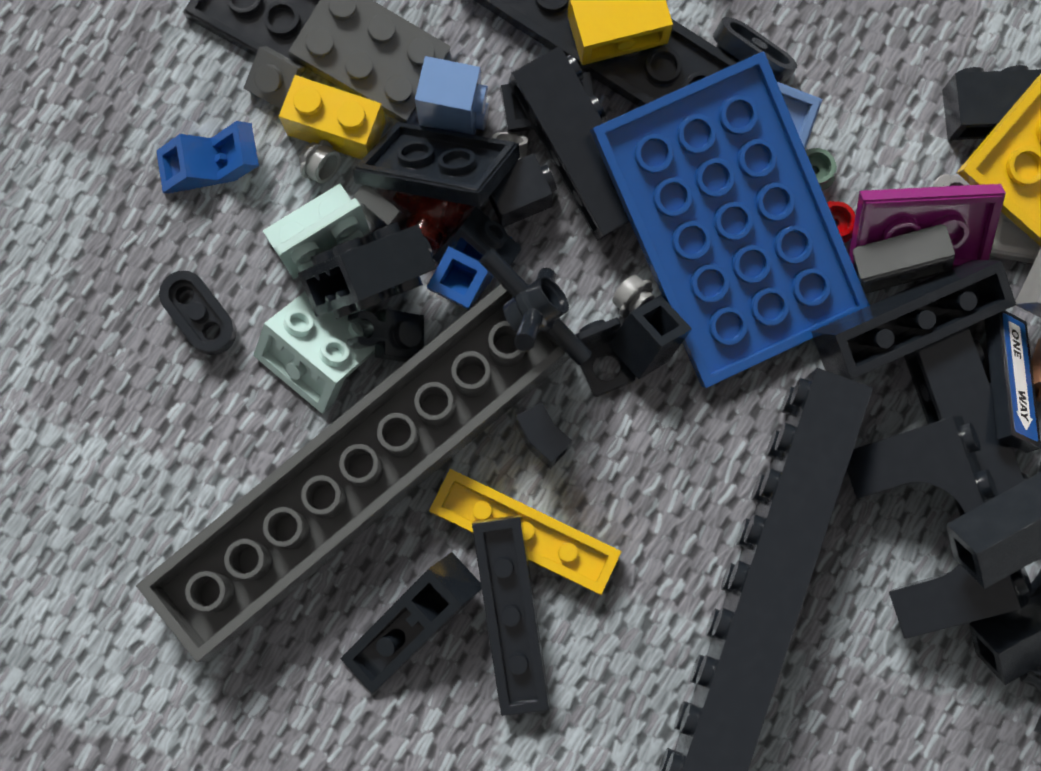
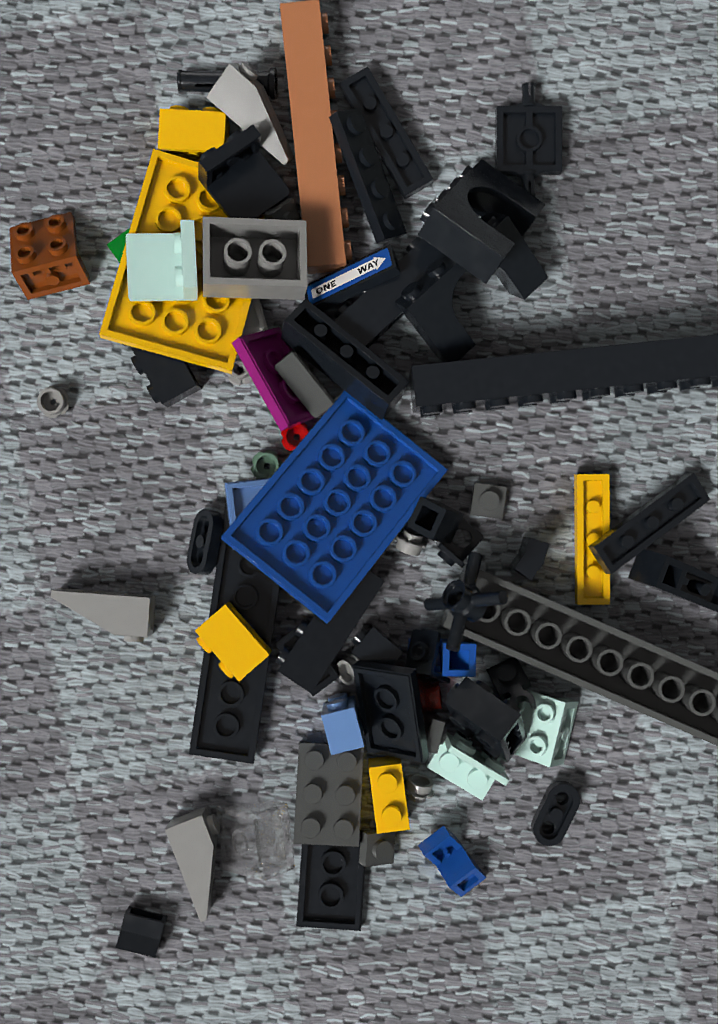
camera: 115 degrees left, 10 degrees up
(639, 423) = (488, 500): none -> dark grey plate

